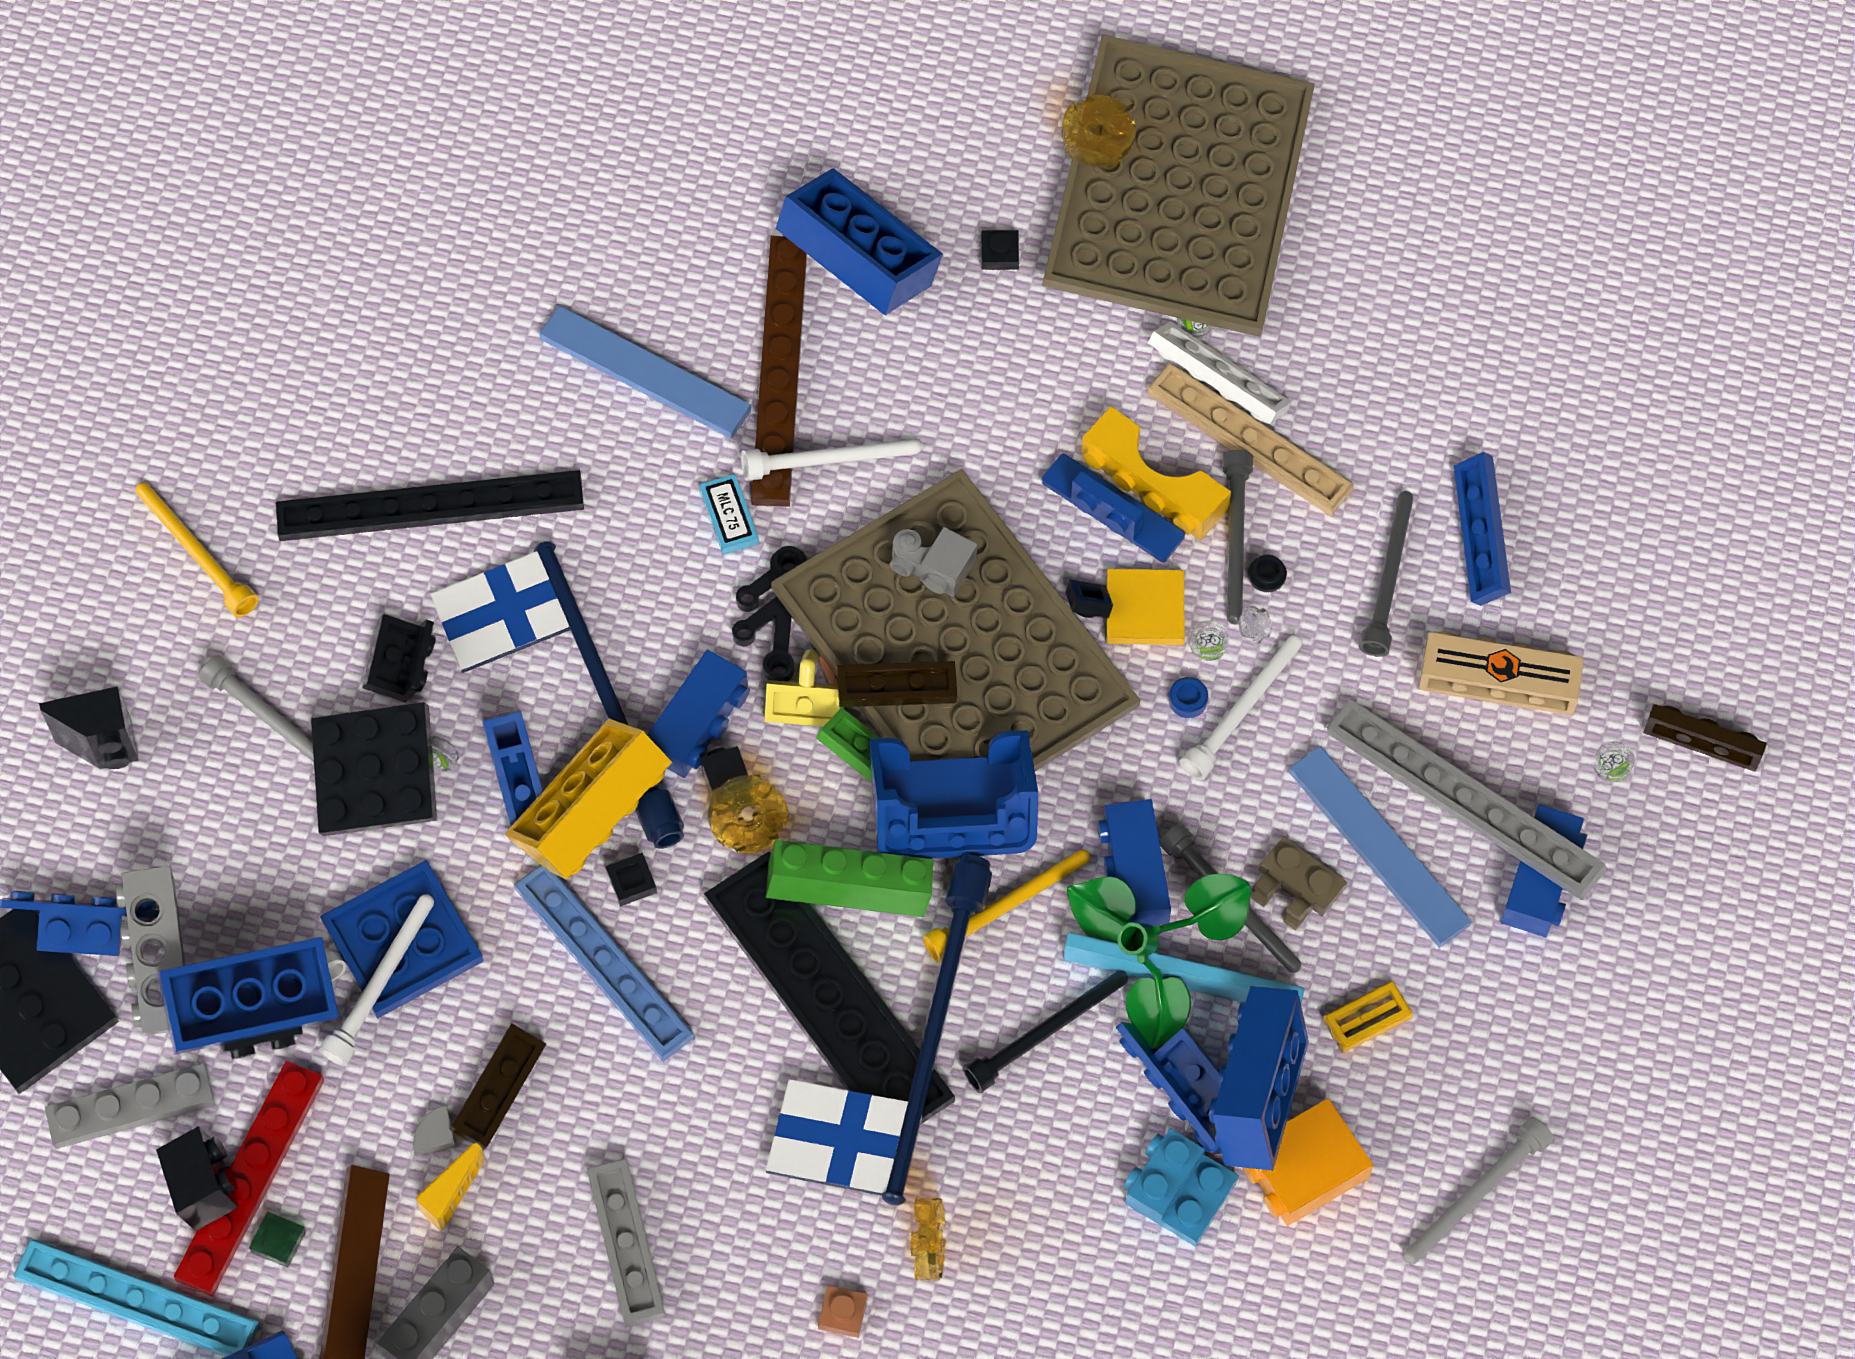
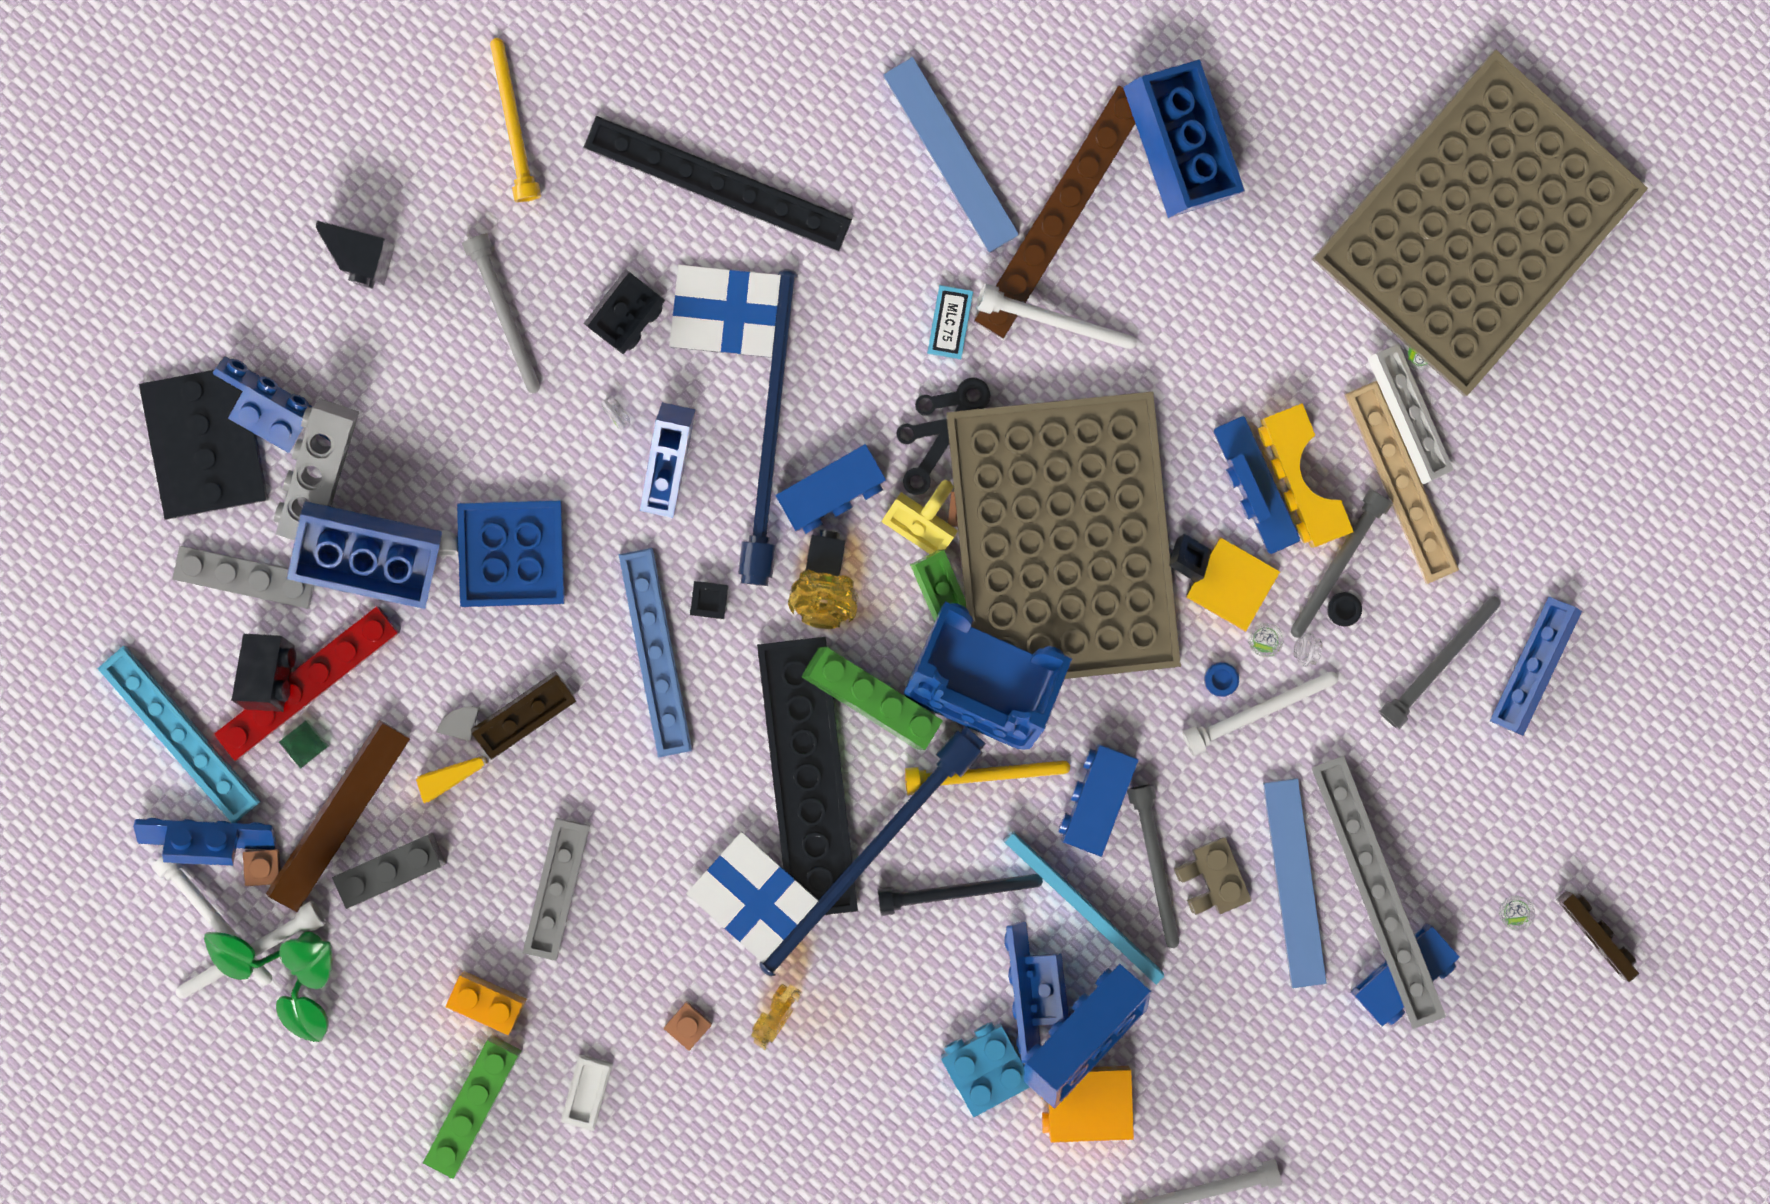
camera: 30 degrees right, 25 degrees up
(340, 1044) = (421, 621): white piece -> none
(373, 769) = (556, 403): black plate -> none
(589, 798) = (706, 522): yellow slope -> none
(897, 684) = (995, 559): dark brown plate -> none
(939, 566) = (1085, 476): light grey brick -> none
(1000, 249) = (1299, 198): black plate -> none
(1094, 149) = (1456, 146): clear yellow plate -> none
(1103, 910) = (1048, 922): green plant -> none
(1338, 1032) = (1203, 1026): yellow tile -> none
(1501, 673) = (1474, 797): tan brick -> none

